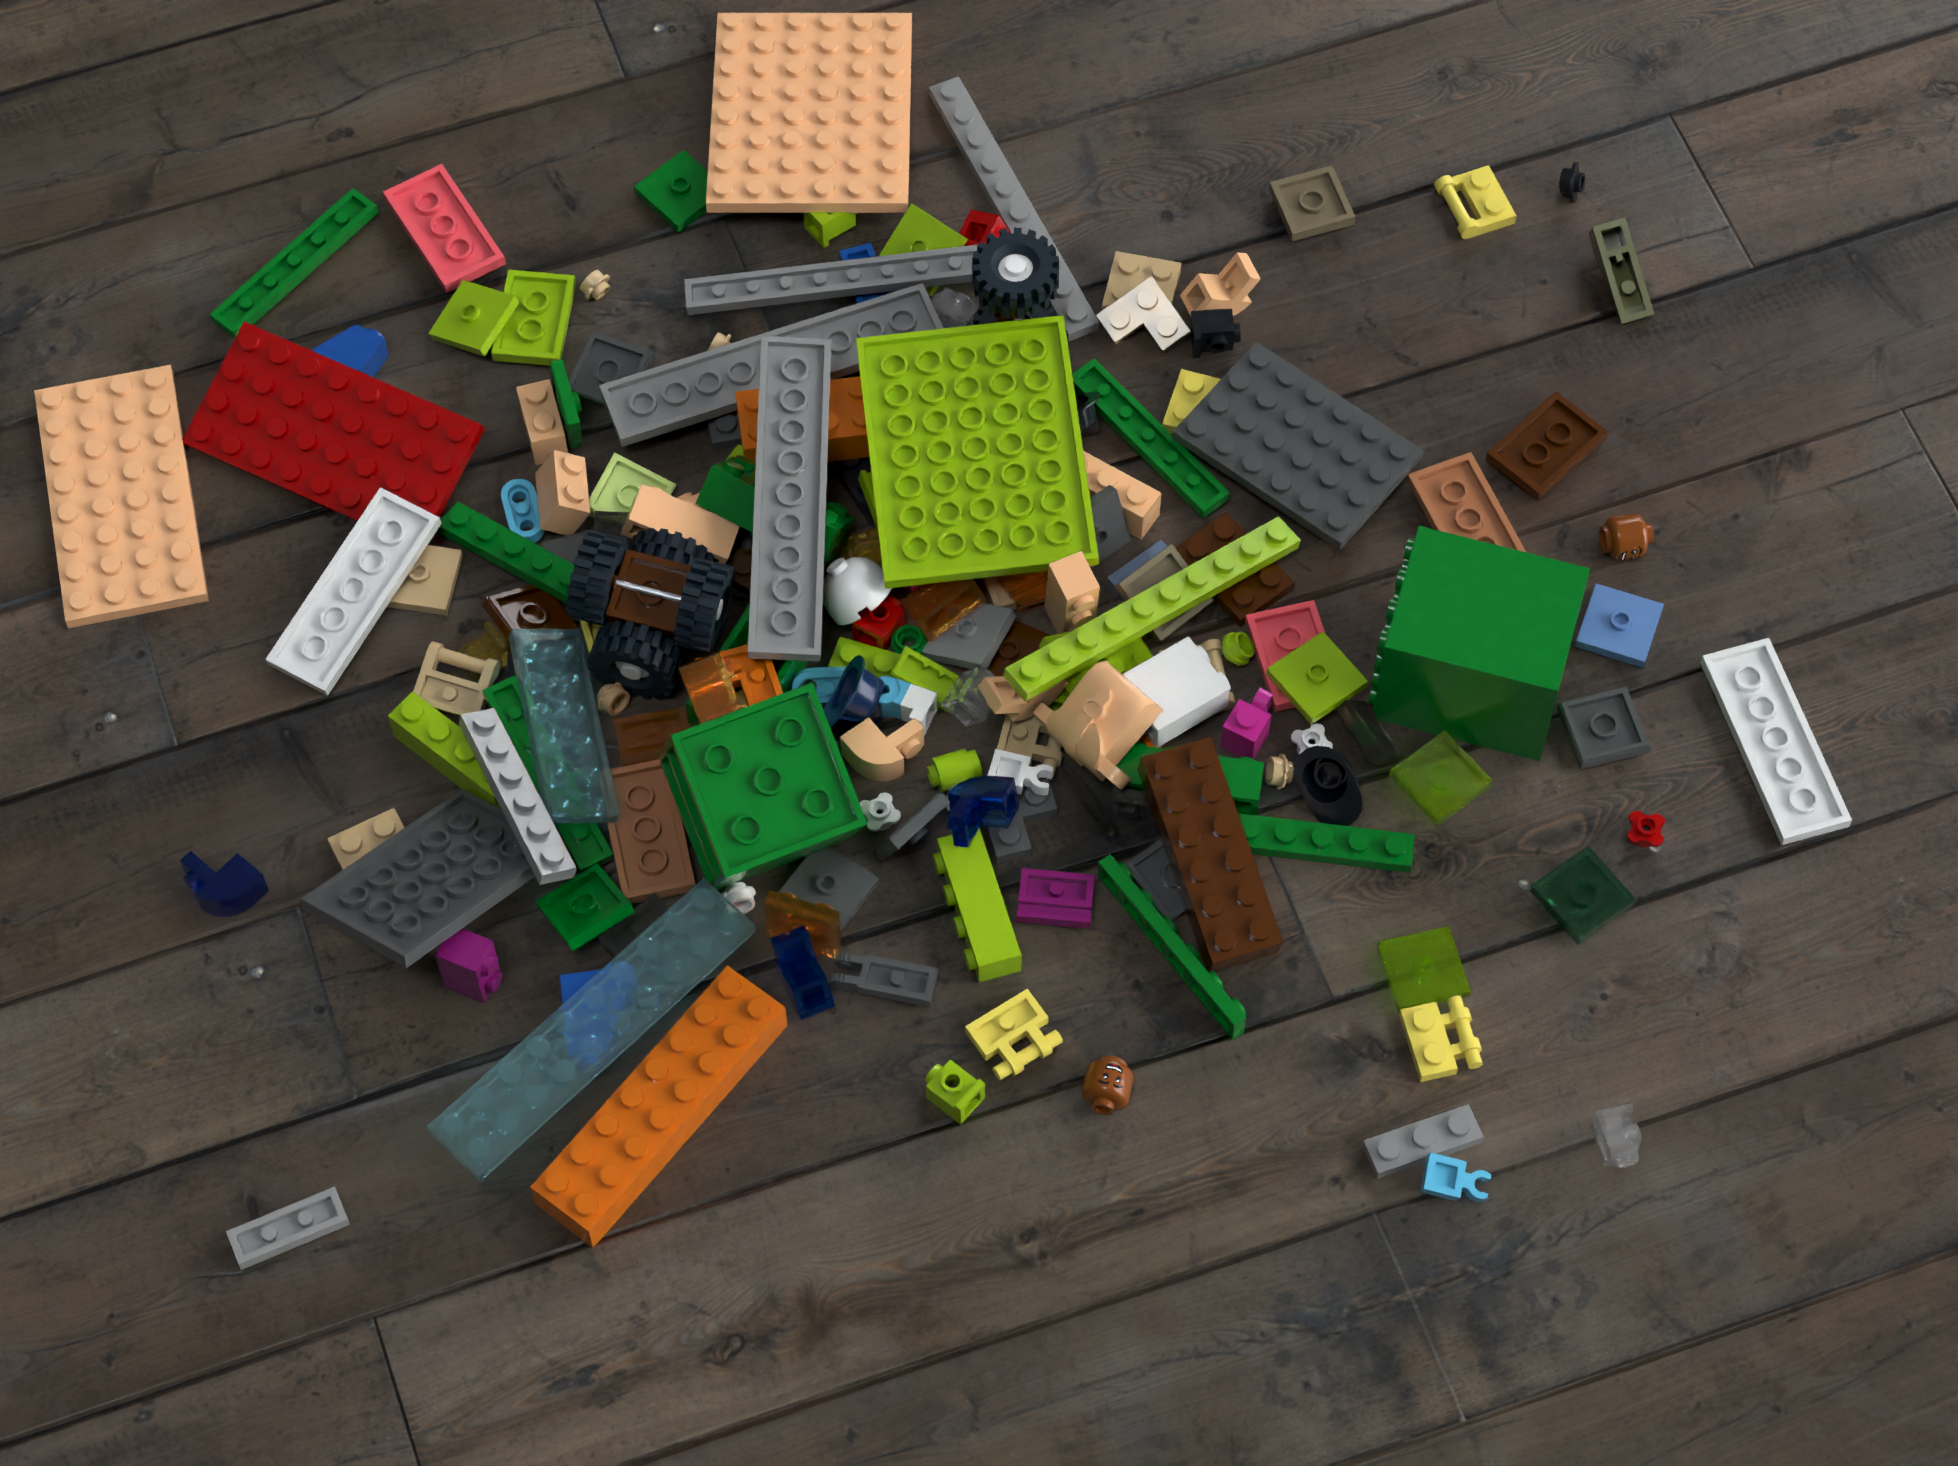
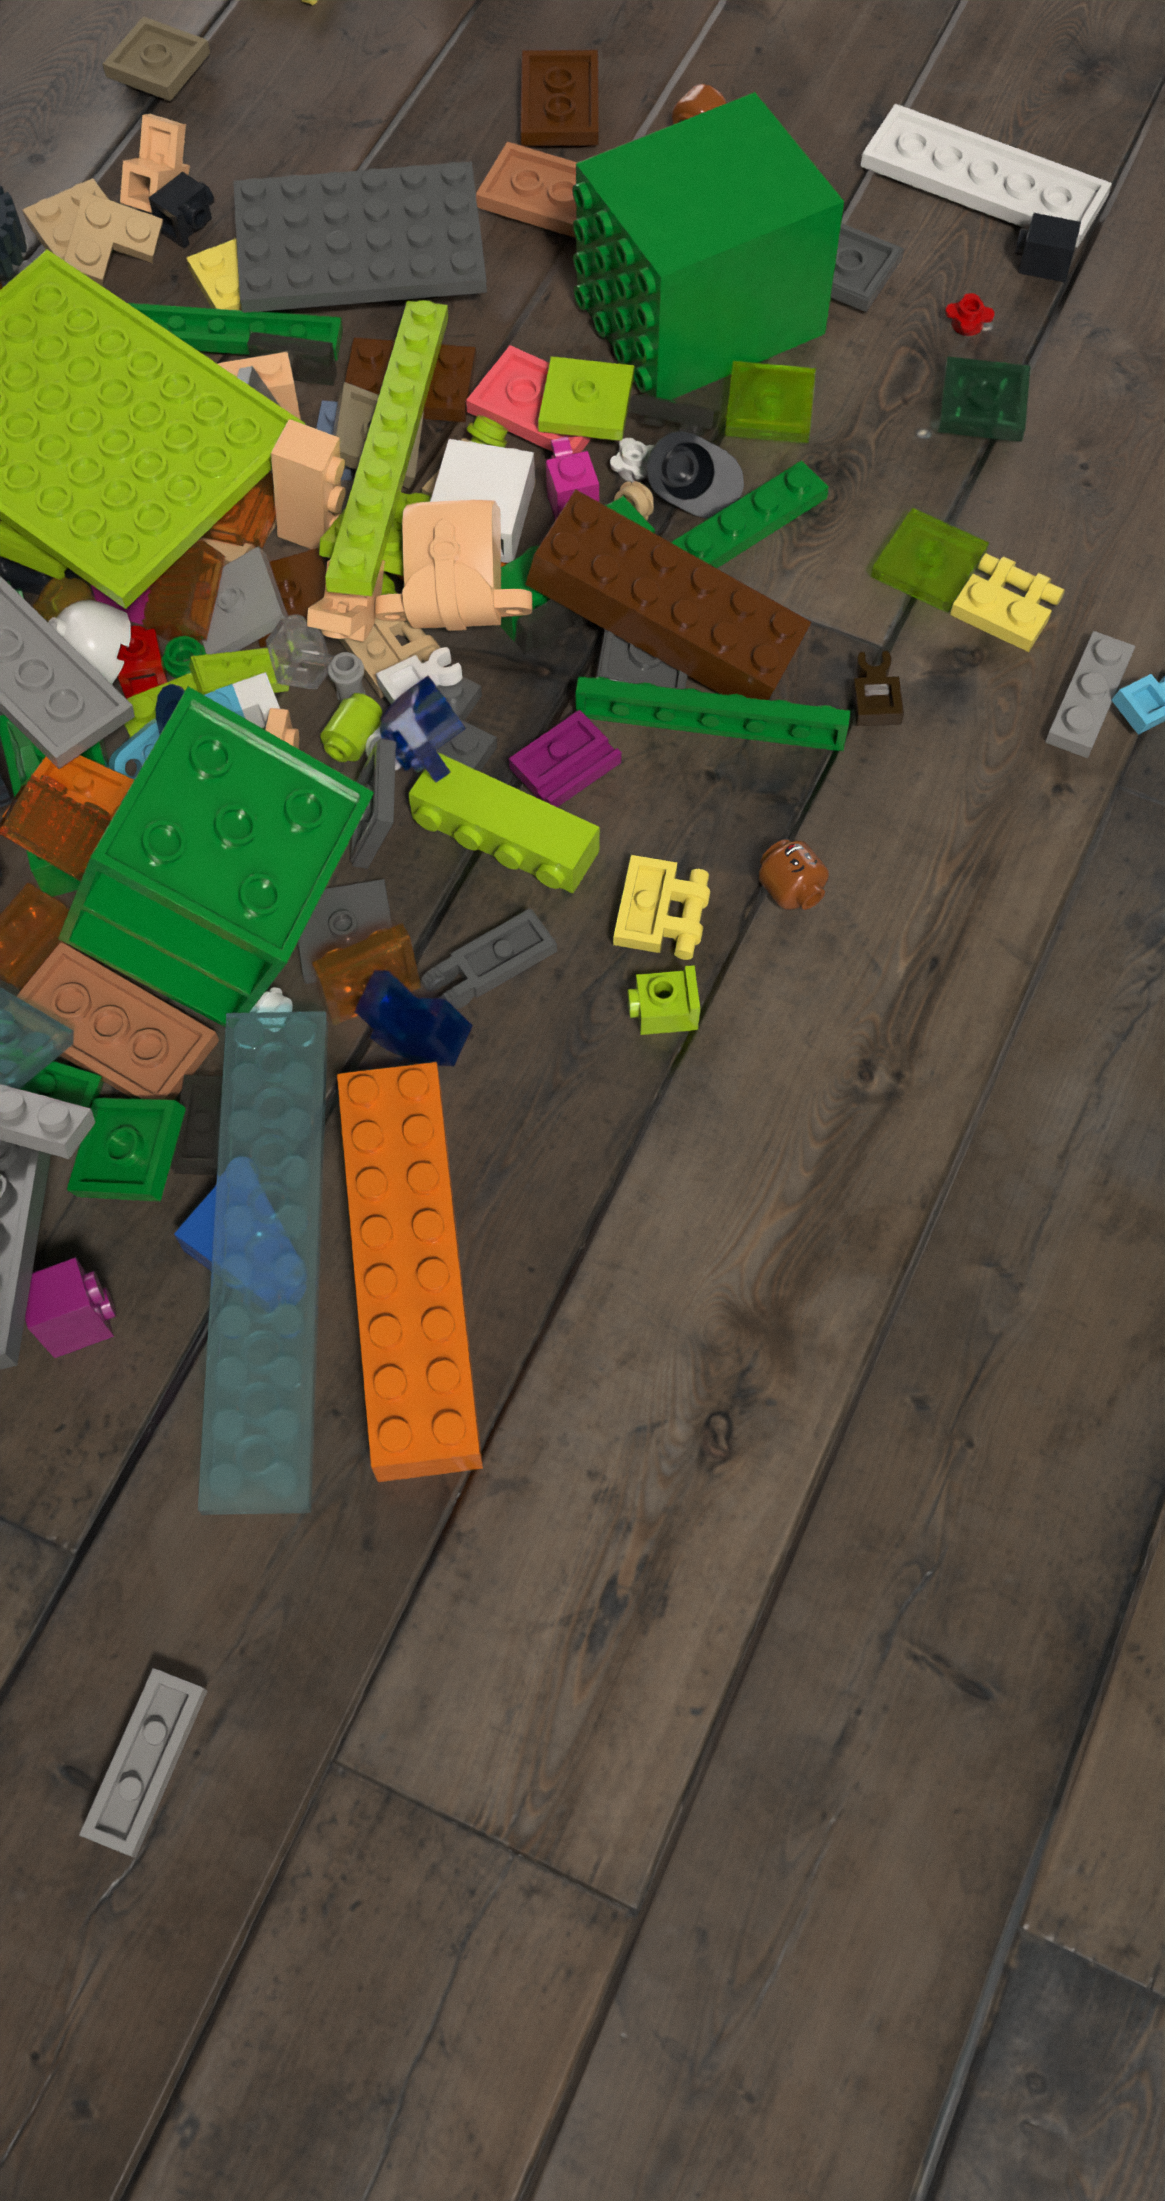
camera: 45 degrees left, 5 degrees up
(982, 734) = (347, 673): none -> light grey pin
(1176, 502) = (309, 359): none -> clear smoke plate
(1286, 1024) = (875, 694): none -> dark brown plate
(1752, 828) = (1047, 247): none -> black brick

